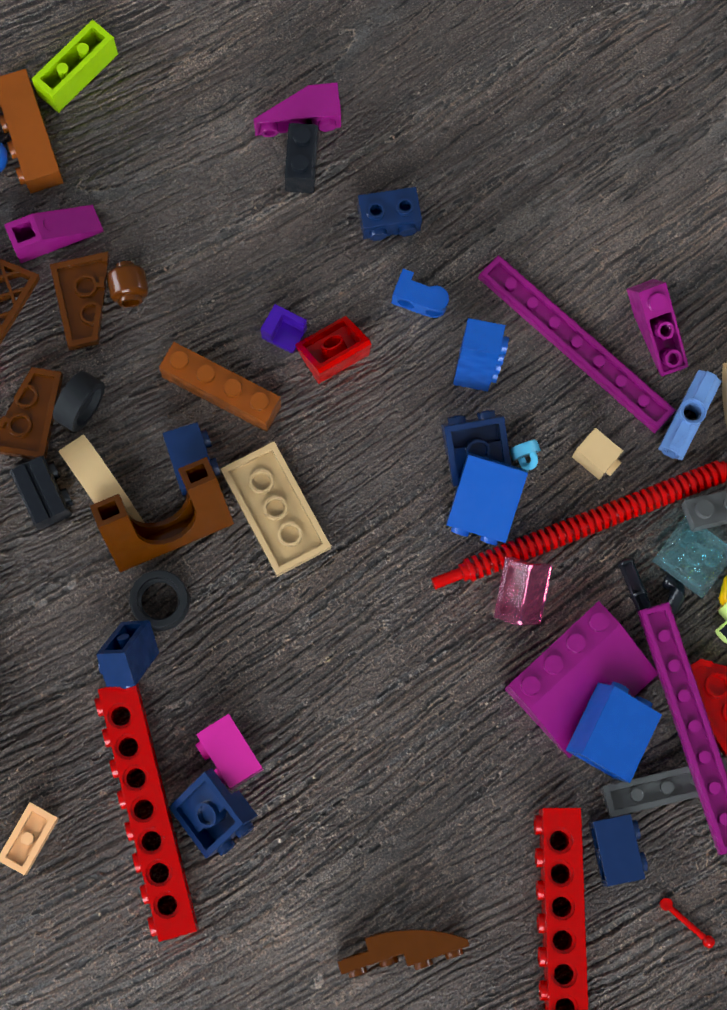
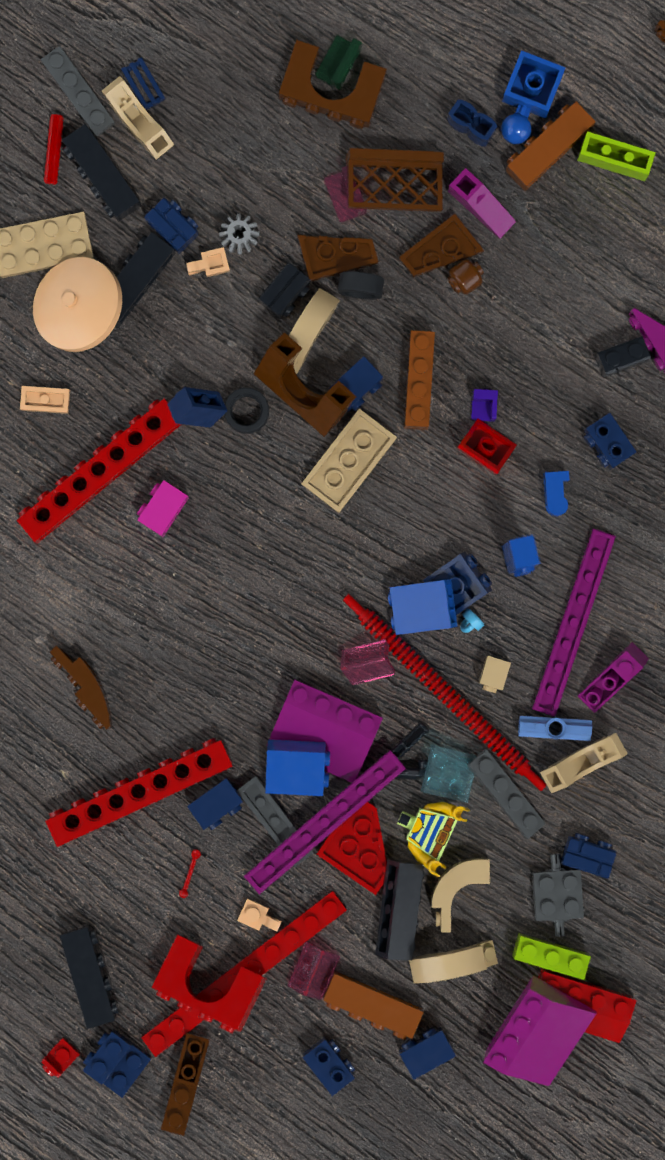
camera: 70 degrees right, 10 degrees up
(213, 814) = (115, 517): dark blue plate -> none

